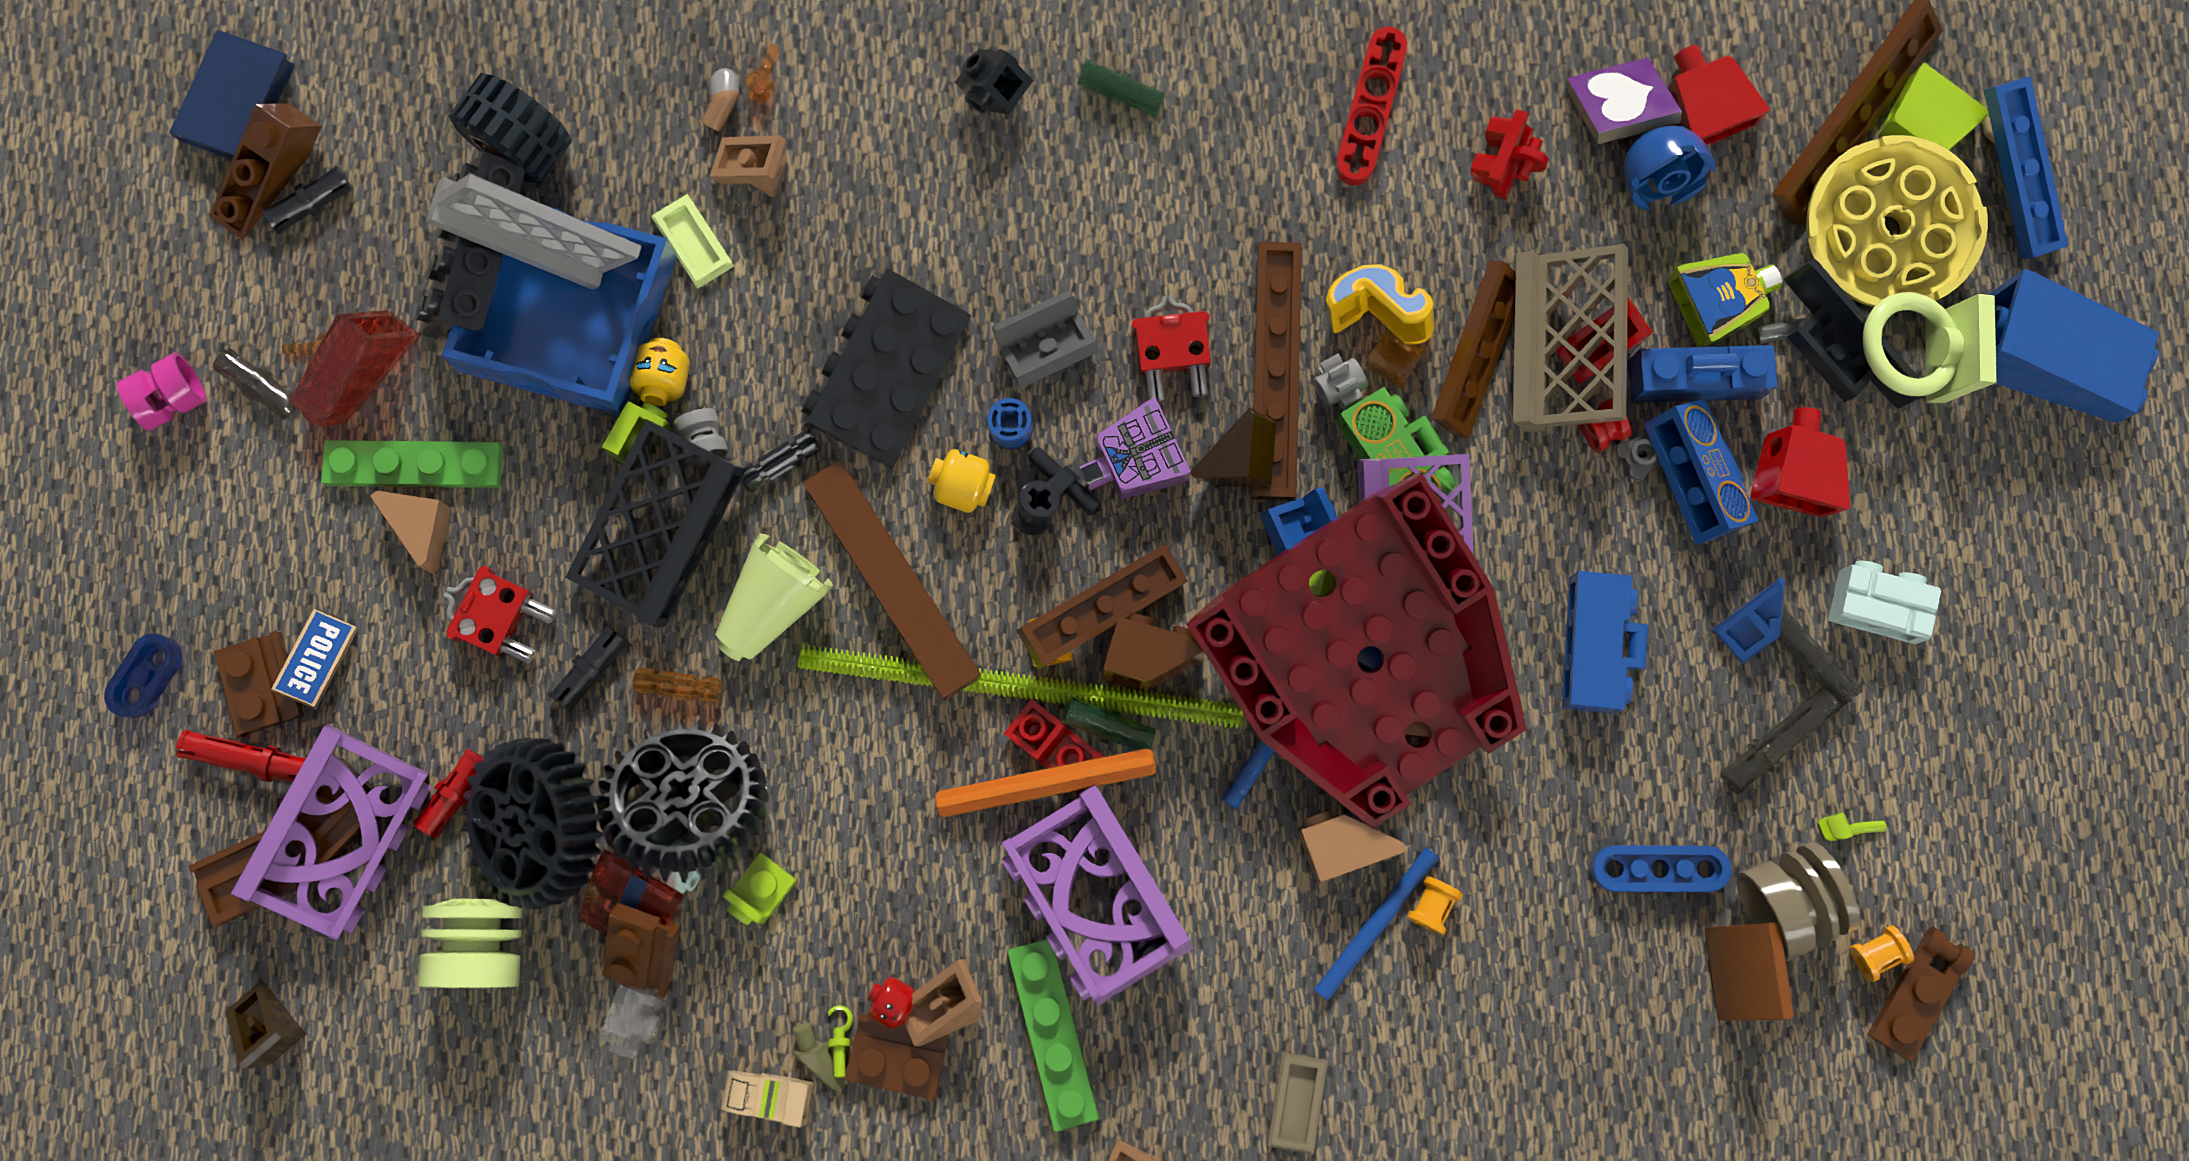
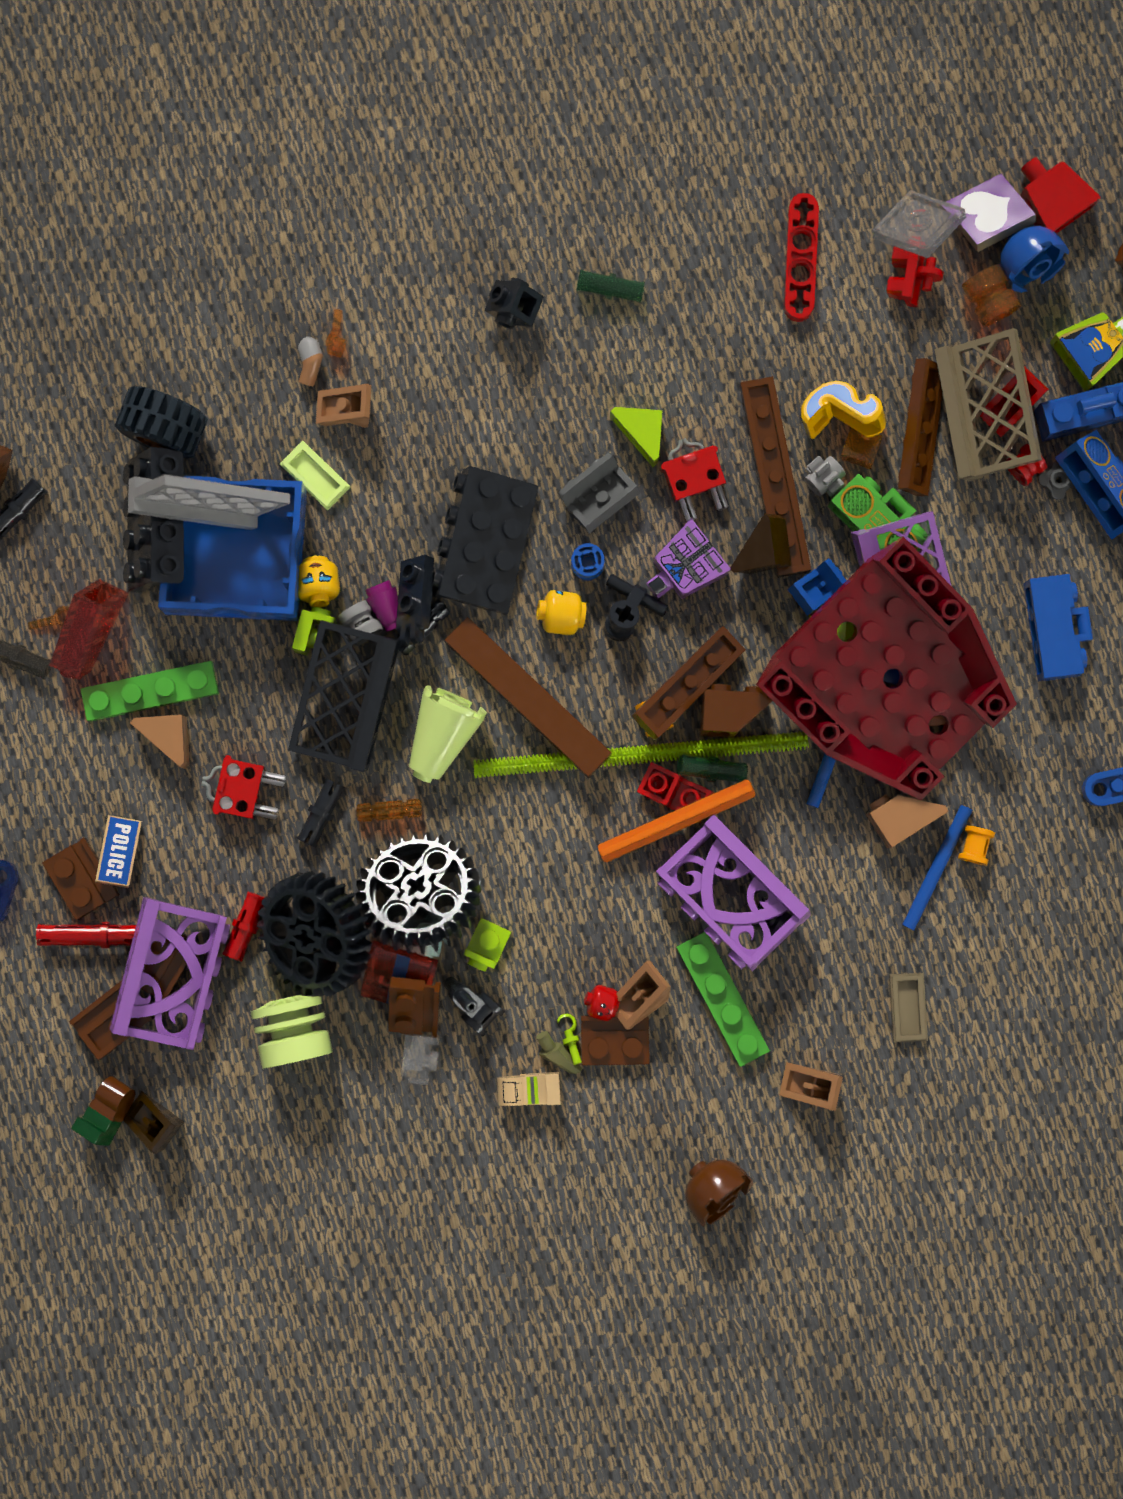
camera: 10 degrees left, 5 degrees up
(202, 998) = (105, 1112): none -> leg
(724, 973) = (478, 1010): none -> black piece
(738, 420) = (384, 603): none -> magenta cone
(776, 421) = (414, 599): none -> black hinge
(1119, 271) = (641, 428): none -> lime slope
(1530, 93) = (919, 223): none -> clear tile
(1603, 201) = (991, 295): none -> clear orange wheel

